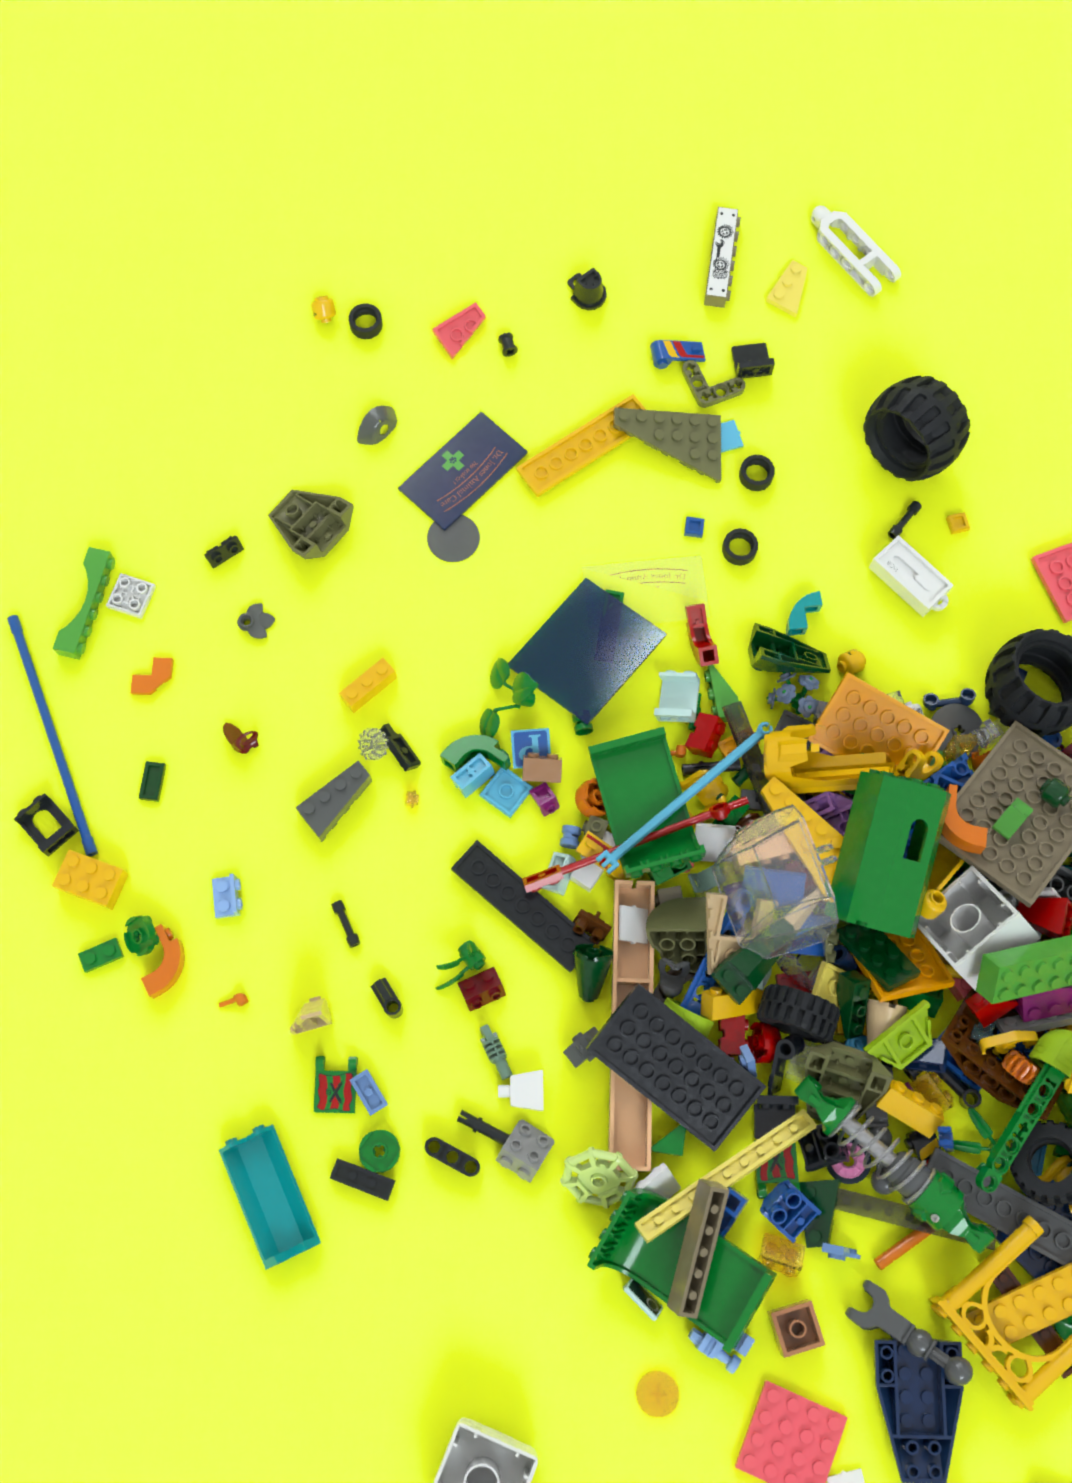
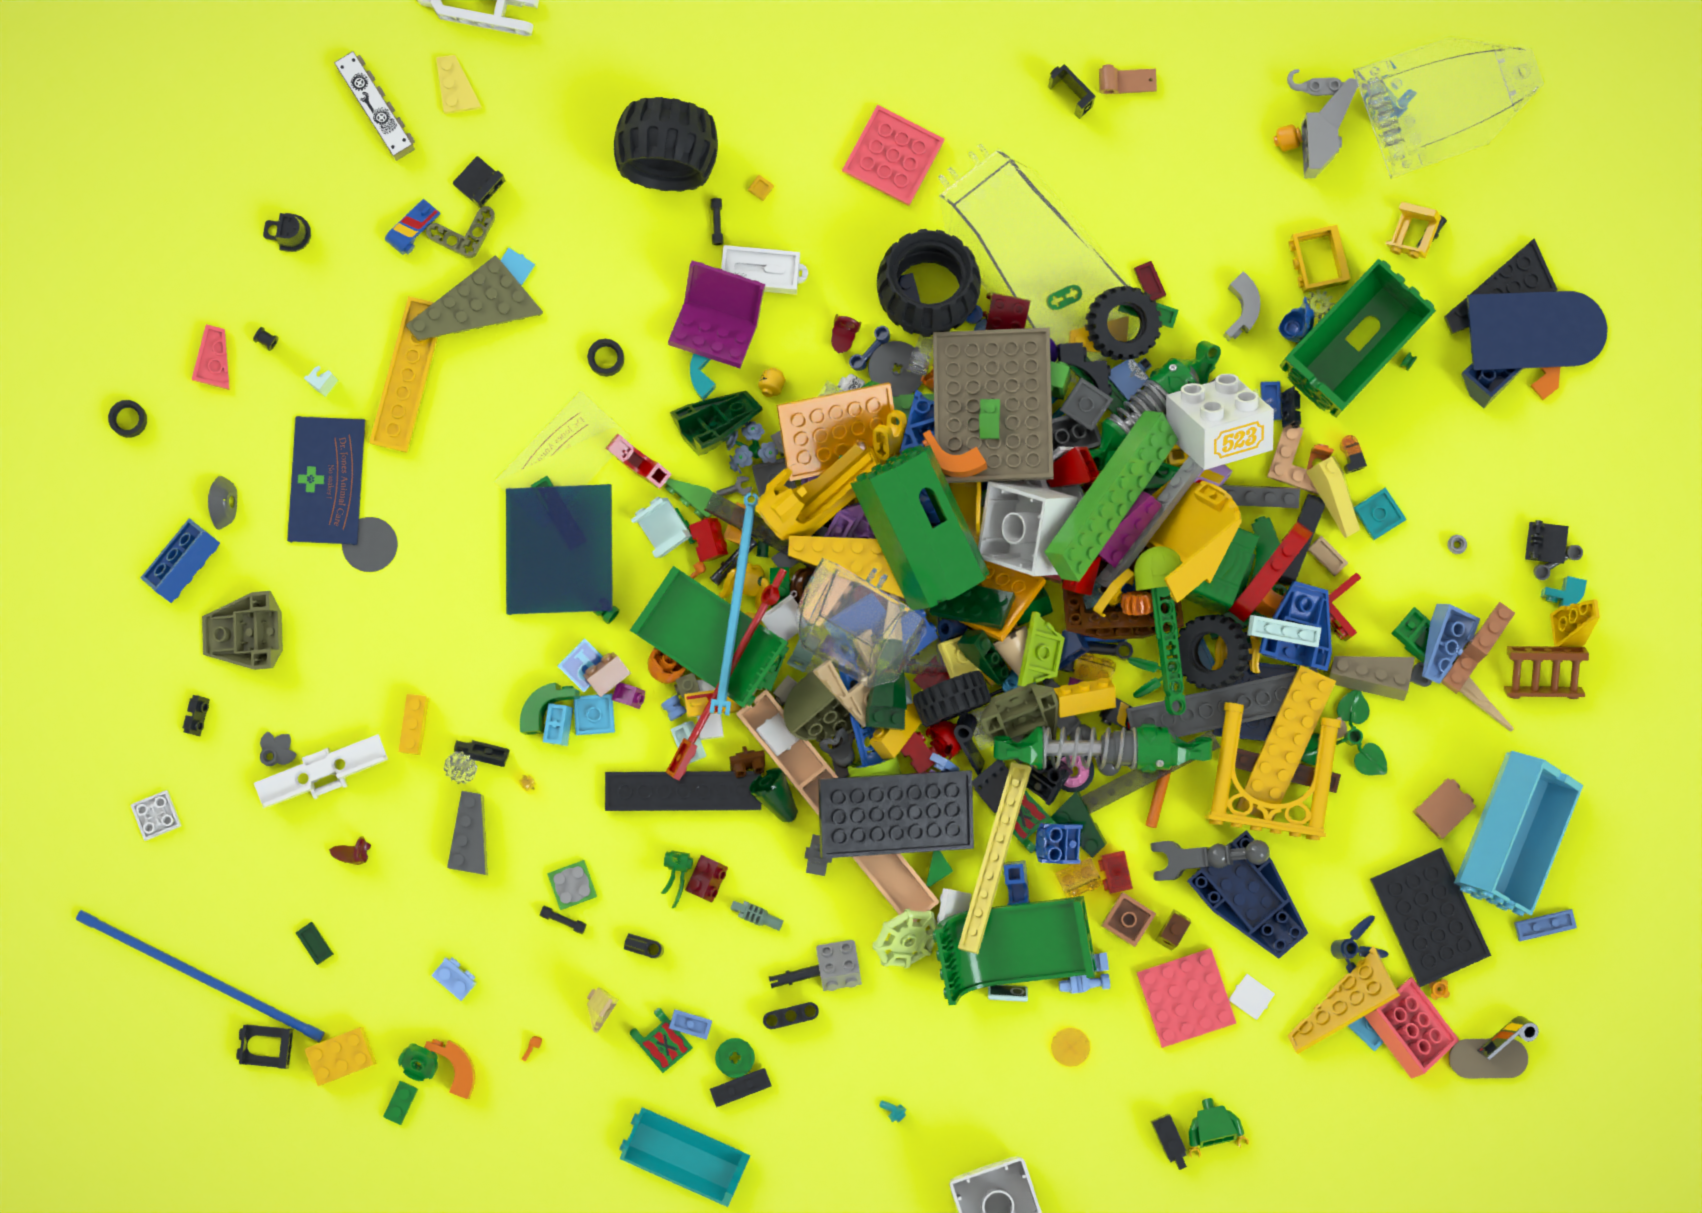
camera: 40 degrees left, 10 degrees up
(72, 638) = (143, 889): bright green arch -> none
(147, 684) = (241, 856): orange tile -> none
(238, 650) = (319, 765): none -> white piece
(312, 440) = (180, 560): none -> blue slope
(323, 309) = (83, 438): yellow head -> none
(376, 904) = (572, 885): none -> light grey piece
(467, 1317) = (897, 1113): none -> teal plate
(521, 400) = (323, 383): none -> light aqua hinge
(522, 695) = (542, 630): green plant -> none
(524, 1091) = (802, 924): white torso -> none
(694, 527) = (555, 370): blue tile -> none
(698, 1248) = (1015, 926): dark tan brick -> none
(759, 460) = (562, 267): black tyre -> none
(759, 716) = (735, 488): none -> flat silver bar
(816, 1277) = (1115, 872): none -> clear red brick
(828, 946) = (932, 628): olive dish -> none
(828, 1372) = (1173, 930): none -> reddish brown torso
(839, 1252) = (1116, 842): medium blue hinge -> none
(855, 578) = (718, 314): none -> magenta bracket
(933, 904) = (982, 536): yellow head -> none
(937, 672) = (844, 333): none -> dark red piece
(946, 1138) = (1128, 696): blue hinge -> none
(959, 745) = (907, 388): clear yellow bracket -> none
(1055, 792) = (1005, 371): dark green head -> none

